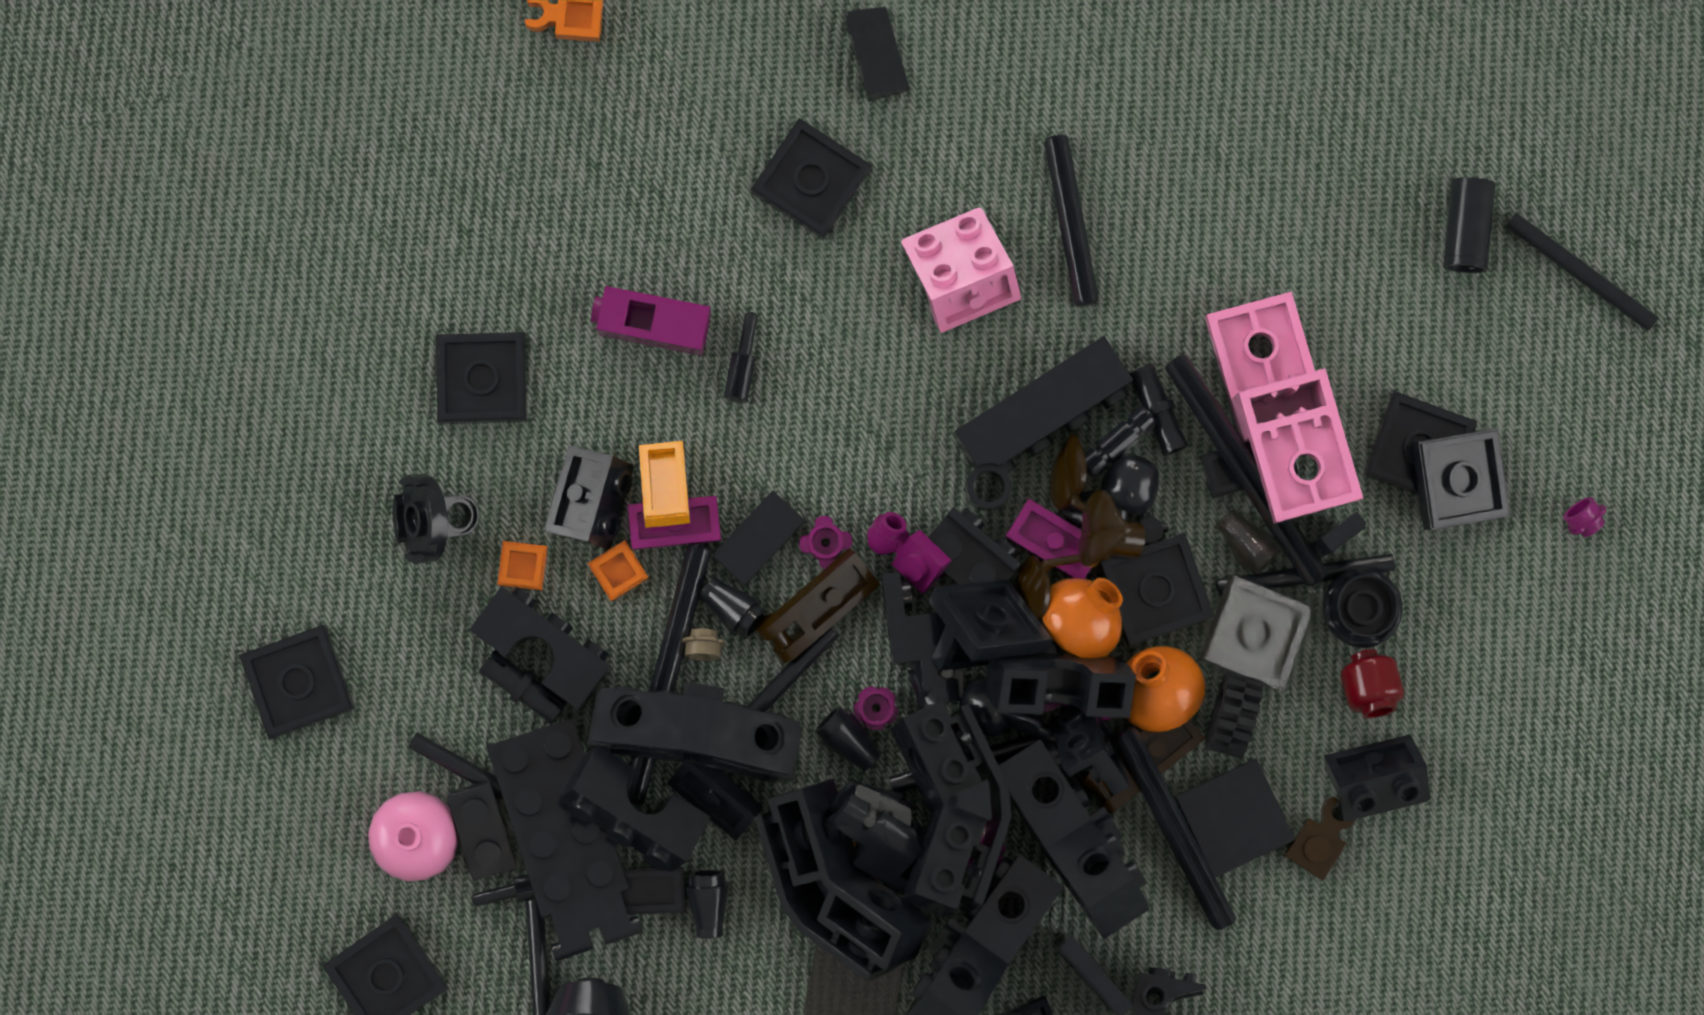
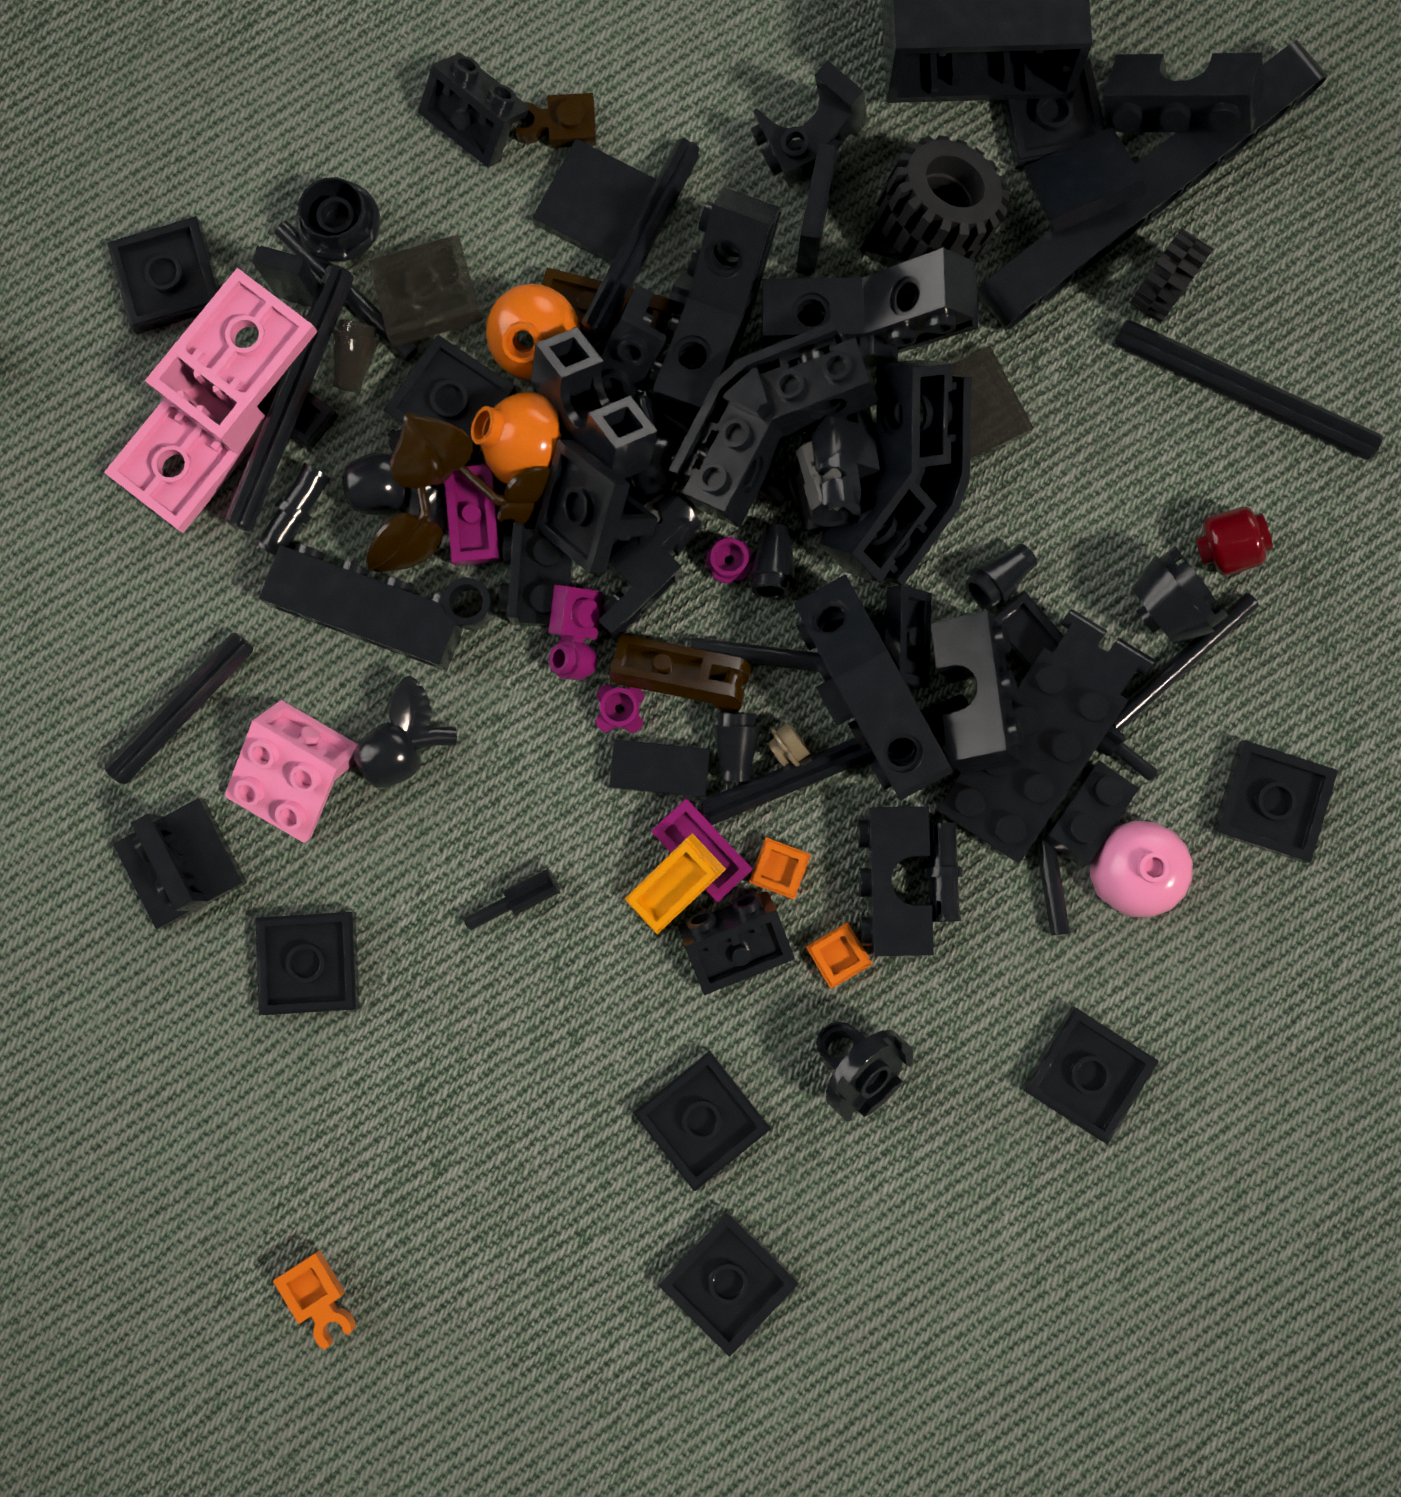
camera: 115 degrees left, 0 degrees up
(354, 311) = (728, 1283): none -> black tile
(651, 320) = (538, 1006): magenta brick -> none
(876, 52) = (150, 992): black slope -> none
(921, 349) = (390, 750): none -> black piece
(954, 140) = (179, 862): none -> black bracket
(1118, 441) = (340, 518): black axle -> none
(1234, 714) = (508, 253): black tyre -> none
(1372, 684) = (397, 167): dark red head -> none
(1460, 479) = (166, 218): tile -> none
(1585, 517) = (125, 99): magenta plate -> none

